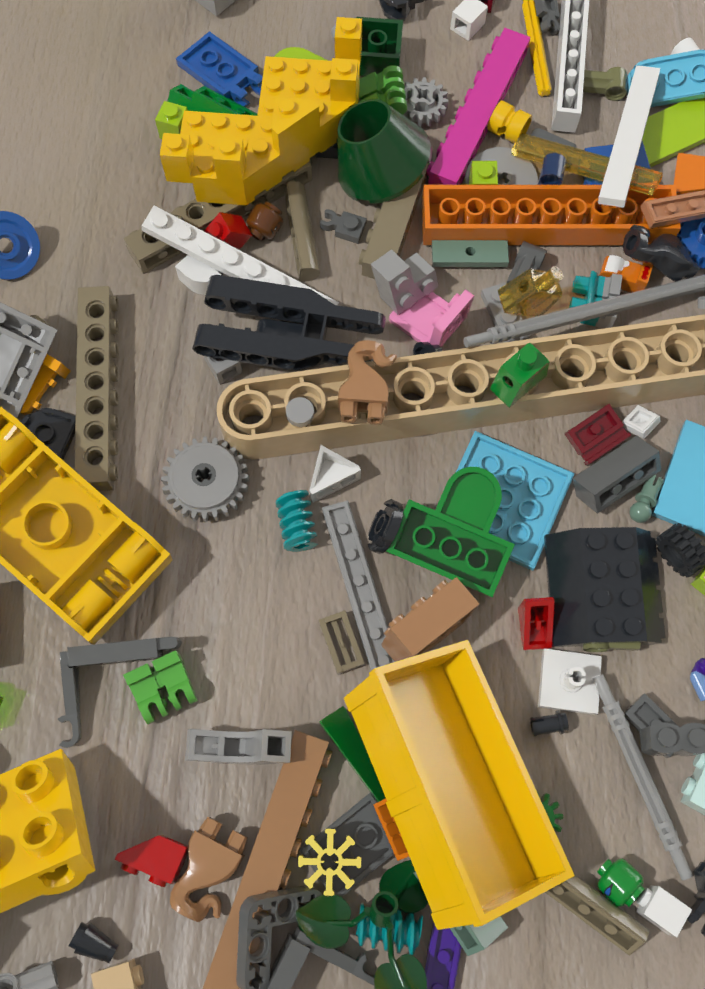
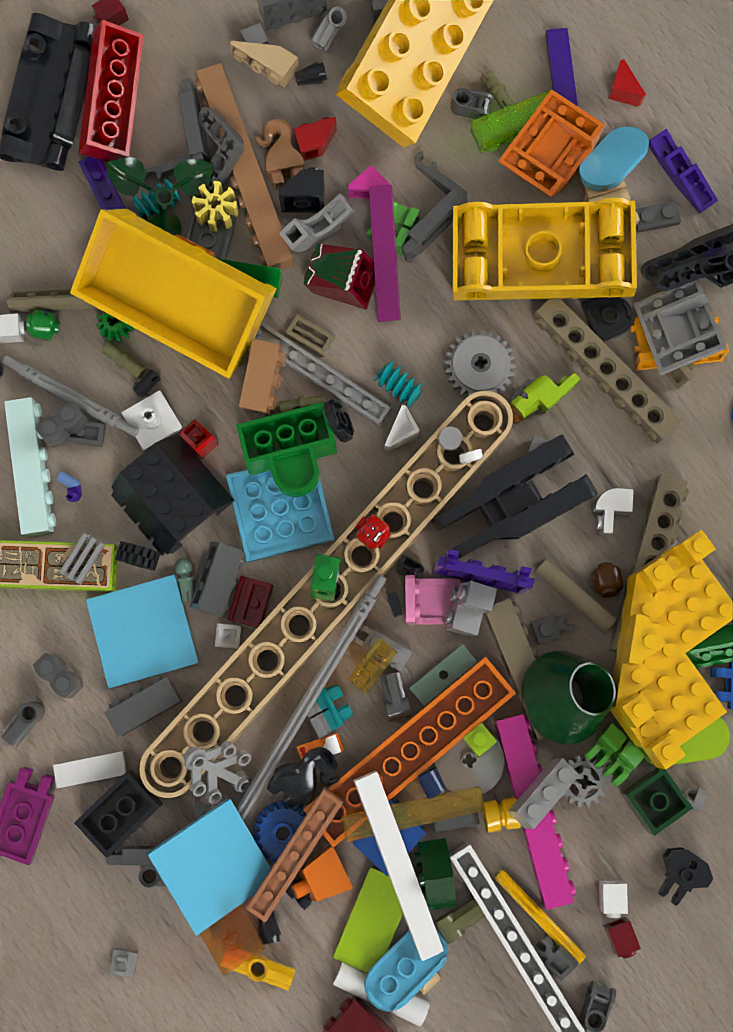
camera: 140 degrees right, 10 degrees up
(144, 751) = (360, 186): none -> dark pink slope
(173, 409) = (540, 394): none -> lime plate
(195, 660) = (385, 253): none -> magenta tile
(214, 251) = (592, 523): white plate -> none
(218, 793) = (304, 192): none -> black slope
(229, 229) = (624, 542): red slope -> none
(260, 676) = (341, 275): none -> dark red slope
(296, 379) = (471, 456): none -> white tile
(365, 388) = (422, 486): medium nougat hips -> none
(375, 278) = (474, 571): none -> dark purple plate
(405, 577) = (299, 403): none -> olive pin
(444, 381) = (373, 531): none -> red head
(467, 99) = (543, 793): none -> light grey brick
(468, 330) = (394, 605): none -> black tile
(555, 769) = (123, 360): none -> olive pin
(596, 119) = (436, 875): none -> dark green brick

